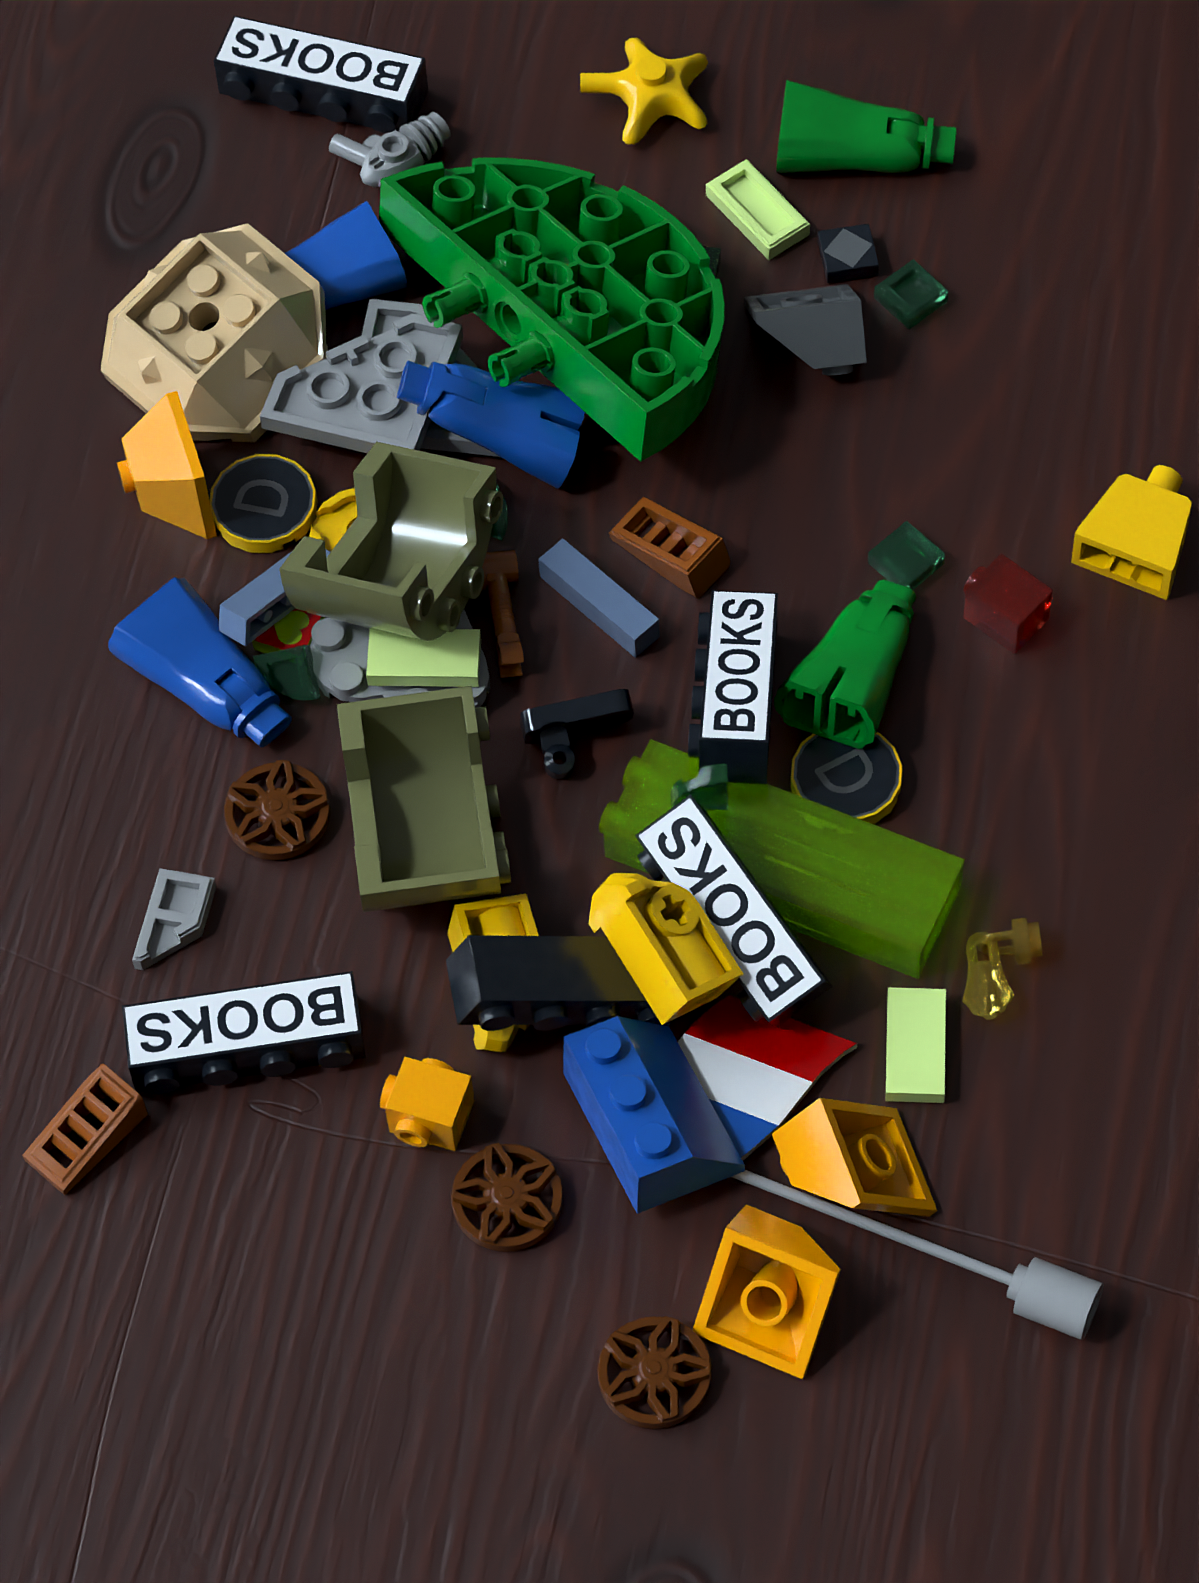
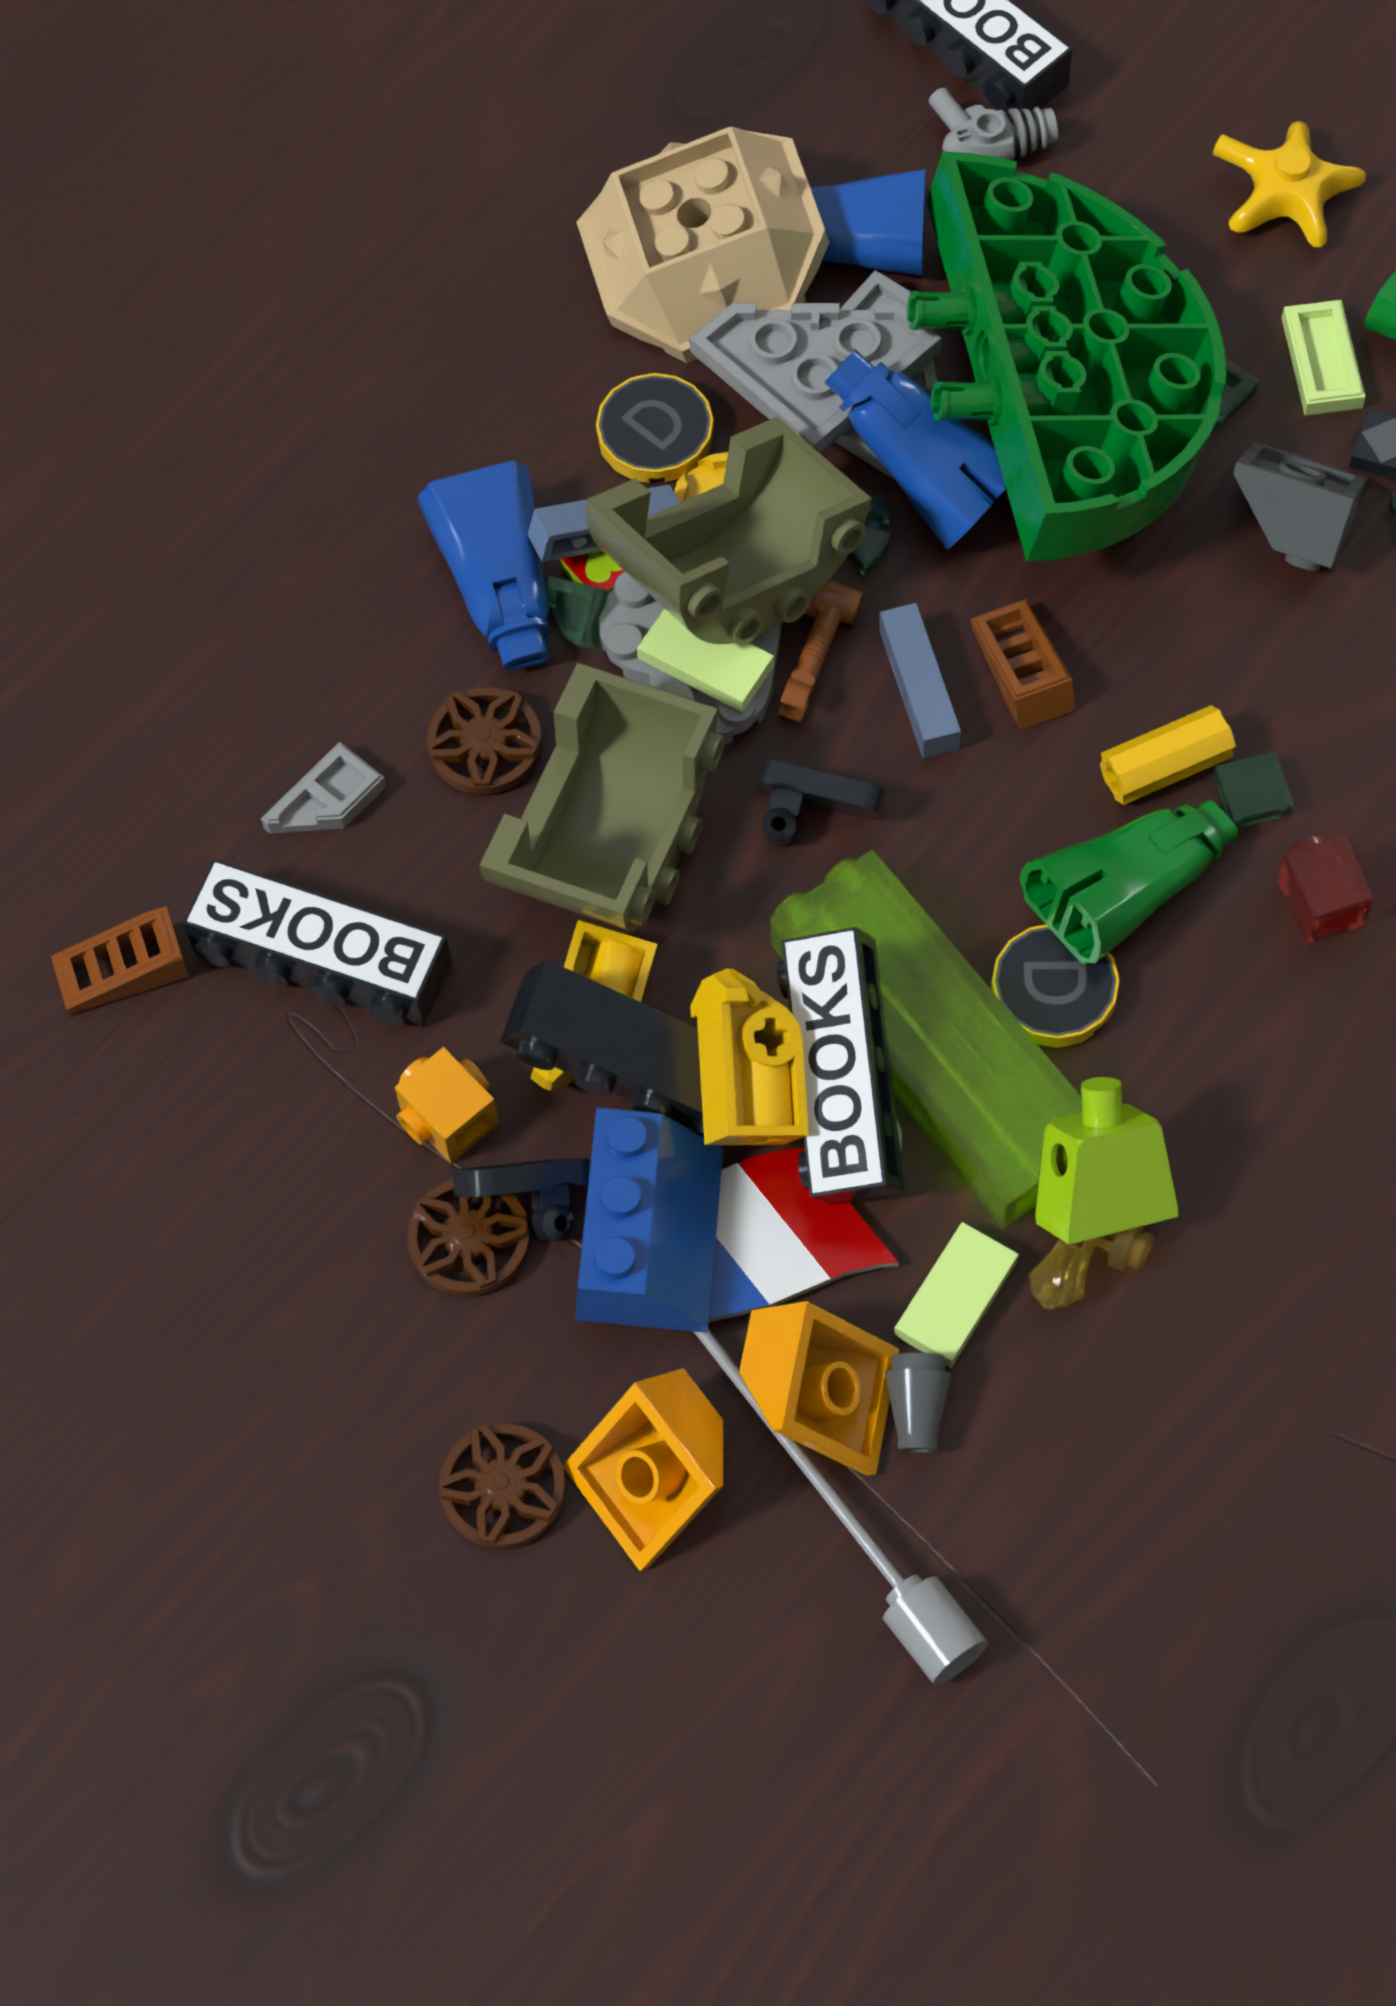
camera: 30 degrees right, 5 degrees up
(167, 469) = (578, 349): light orange slope -> none
(550, 1122) = (545, 1179): none -> black piece
(708, 788) = (892, 928): clear green tile -> none
(737, 684) = (988, 839): brick -> none
(826, 562) = (1167, 754): none -> yellow axle
(937, 1135) = (918, 1399): none -> dark grey cone
(978, 887) = (1103, 1168): none -> lime torso

